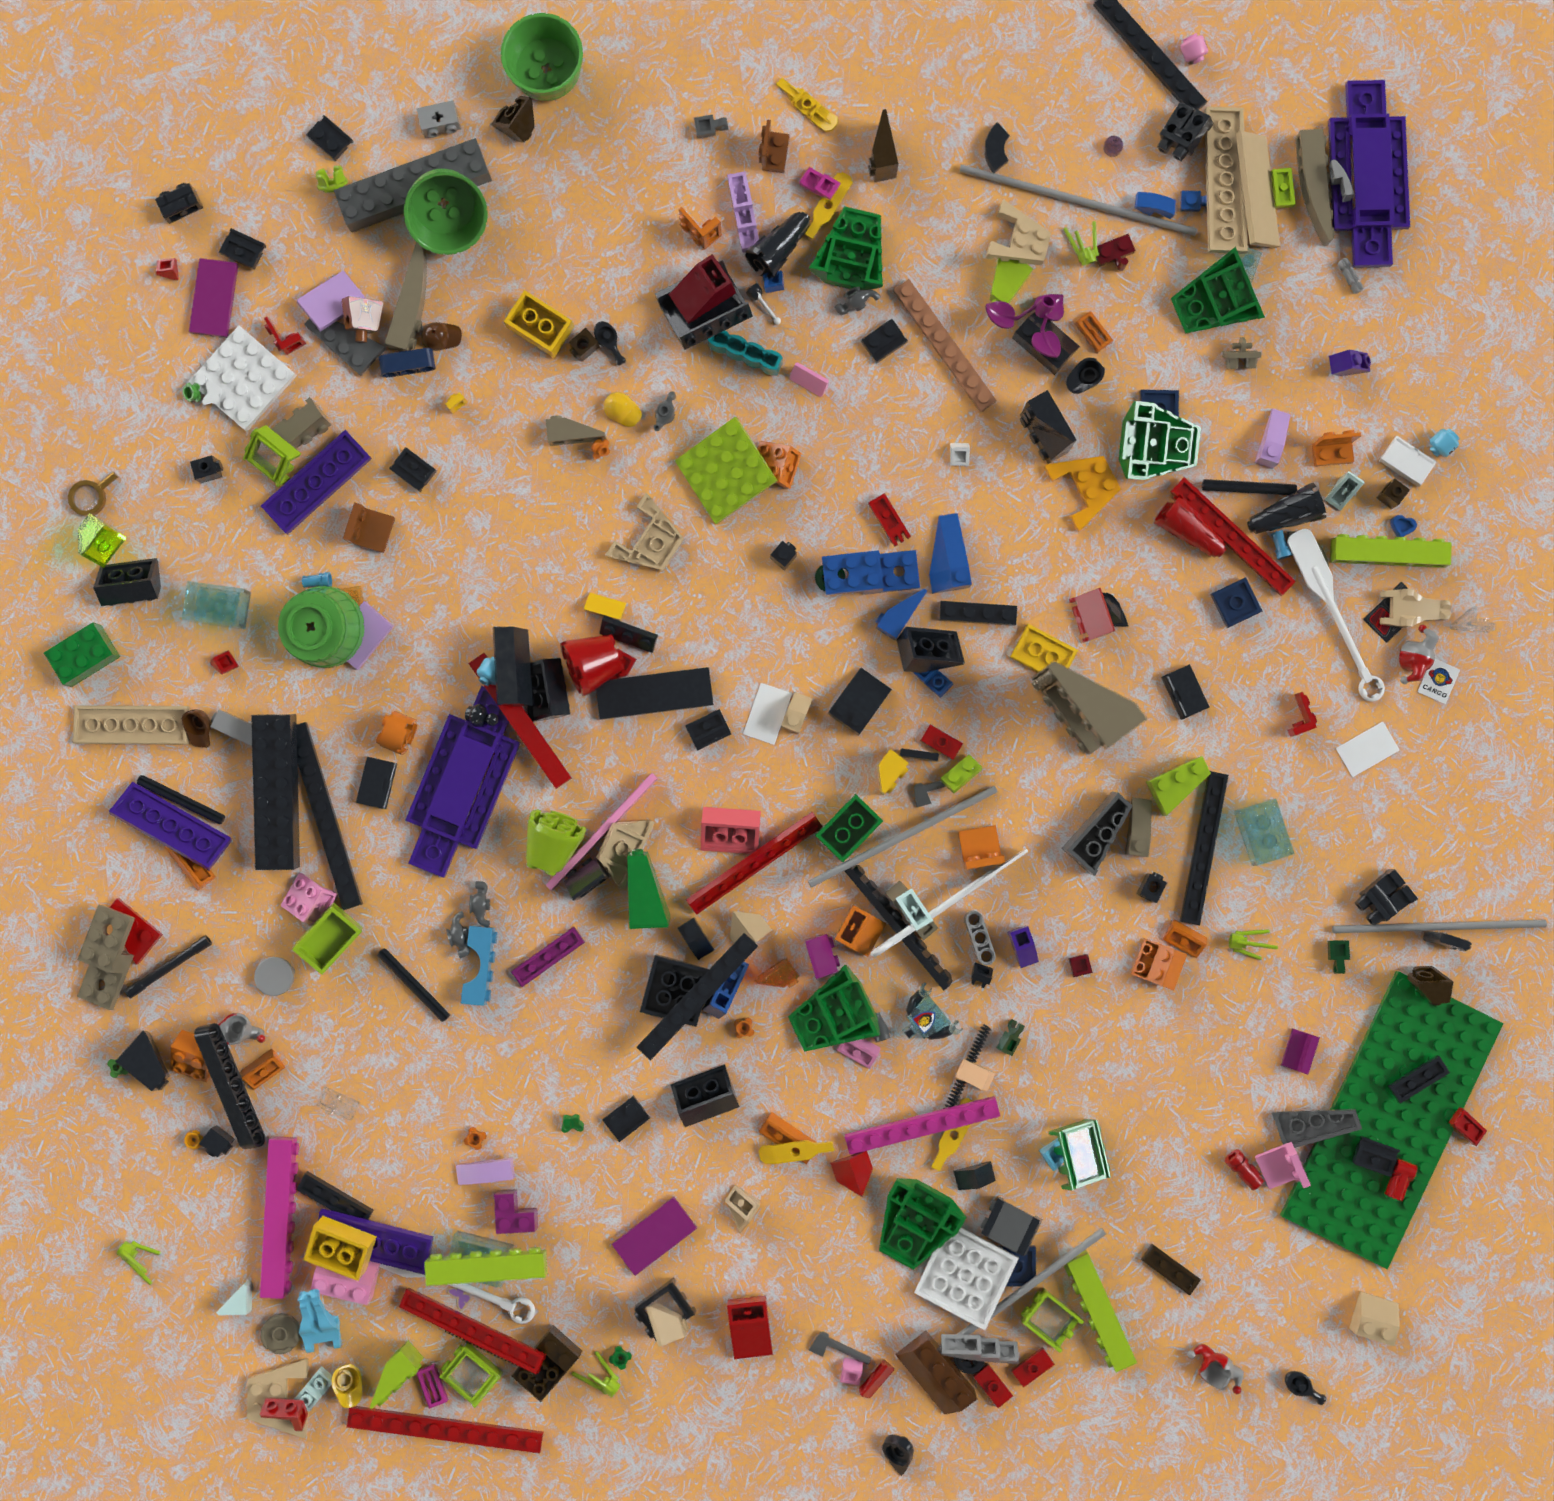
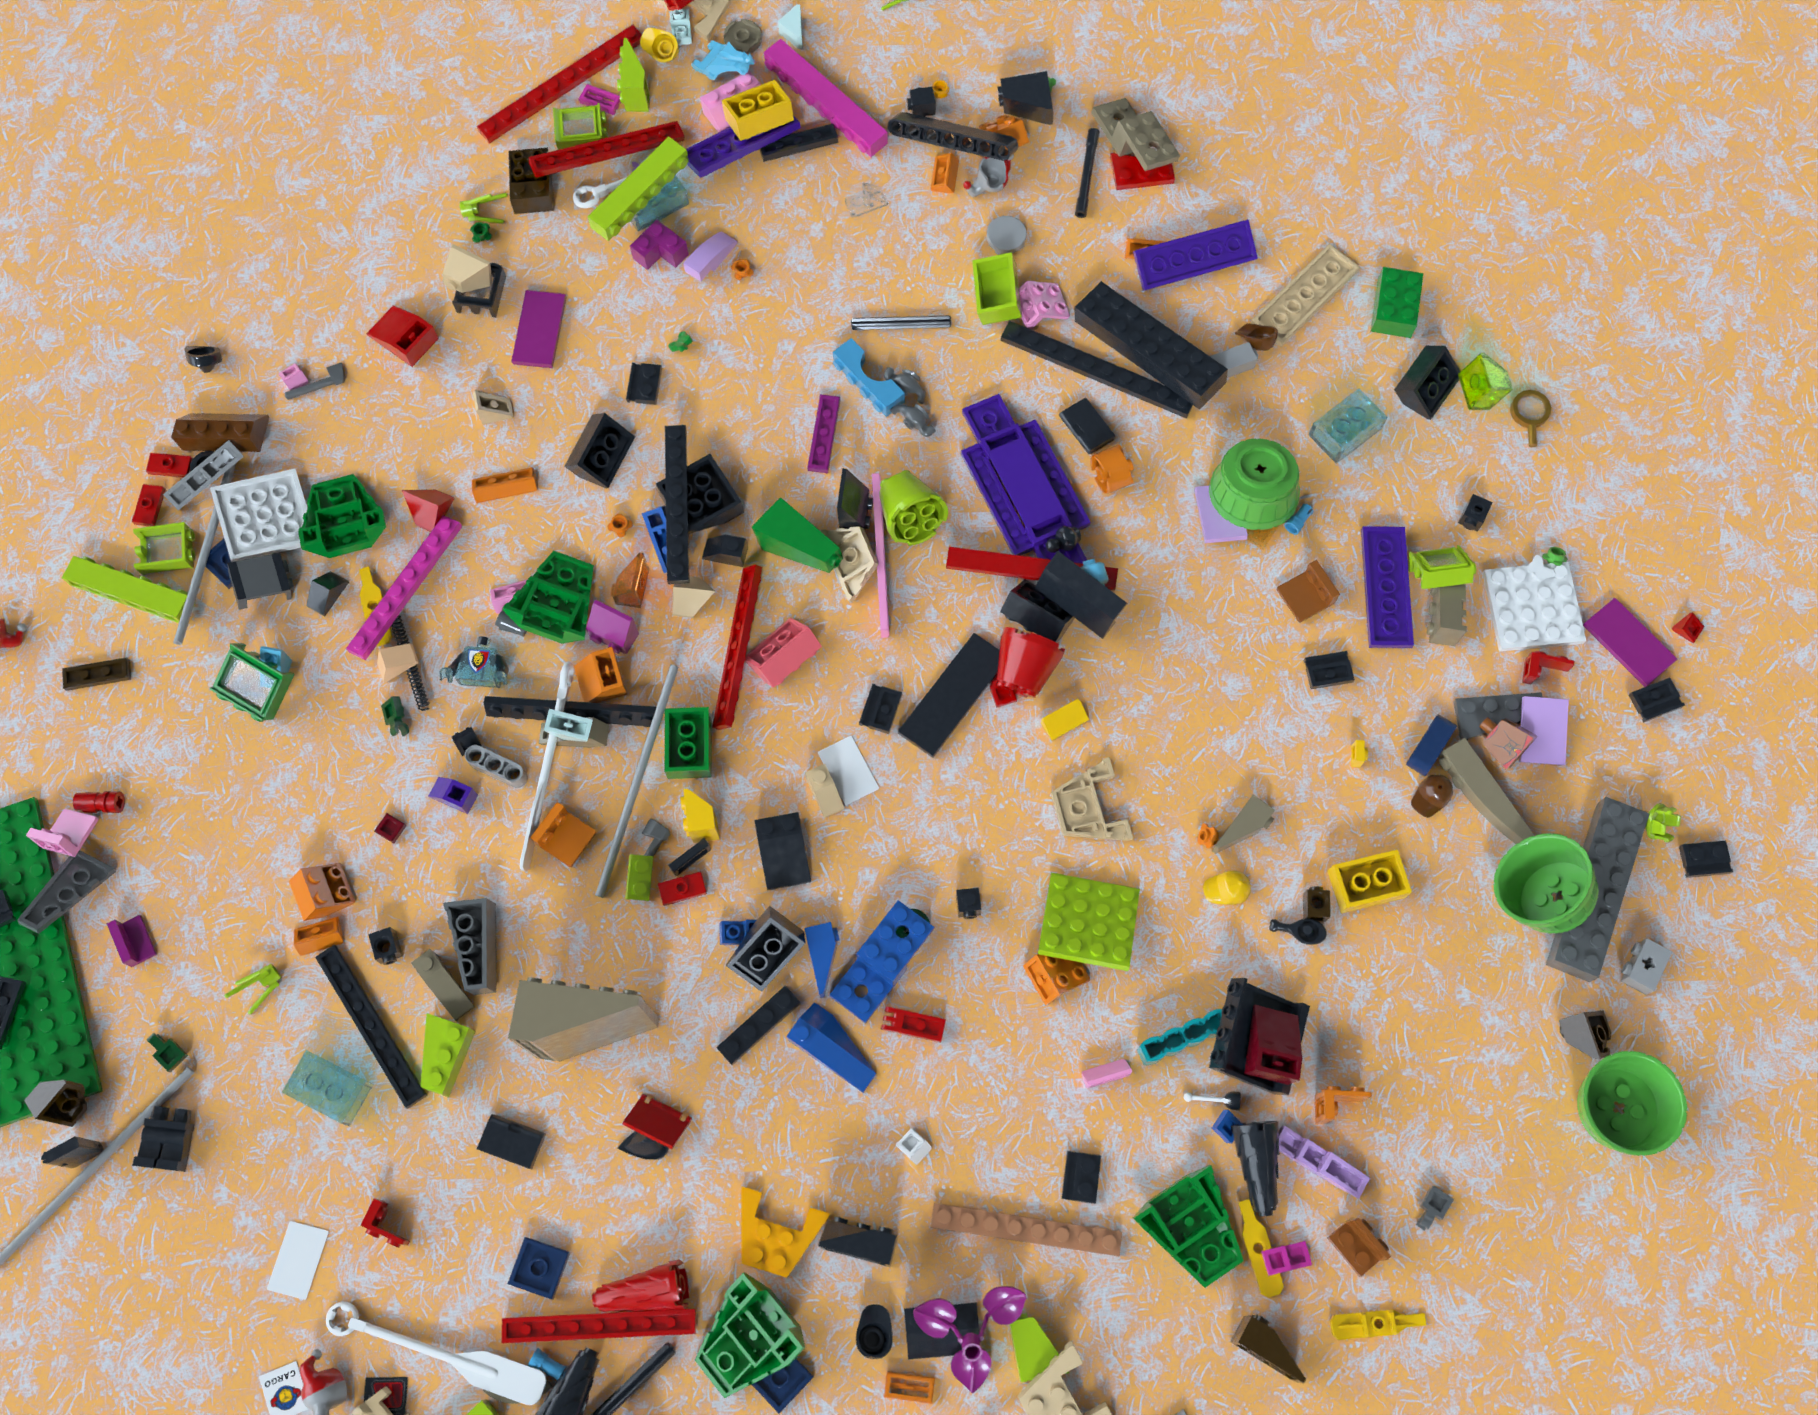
camera: 130 degrees right, 15 degrees down
(178, 202) = (1745, 683): black brick -> none
(180, 799) = (1210, 281): black axle -> none
(224, 662) = (1293, 397): red slope -> none
(628, 634) = (1022, 716): black plate -> none
(665, 412) = (1190, 919): dark grey piece -> none
(784, 1152) = (494, 469): yellow piece -> none
(856, 300) = (1143, 1186): dark grey piece -> none
(876, 1379) = (268, 387): red slope -> none
(1038, 650) = (668, 1049): yellow tile -> none

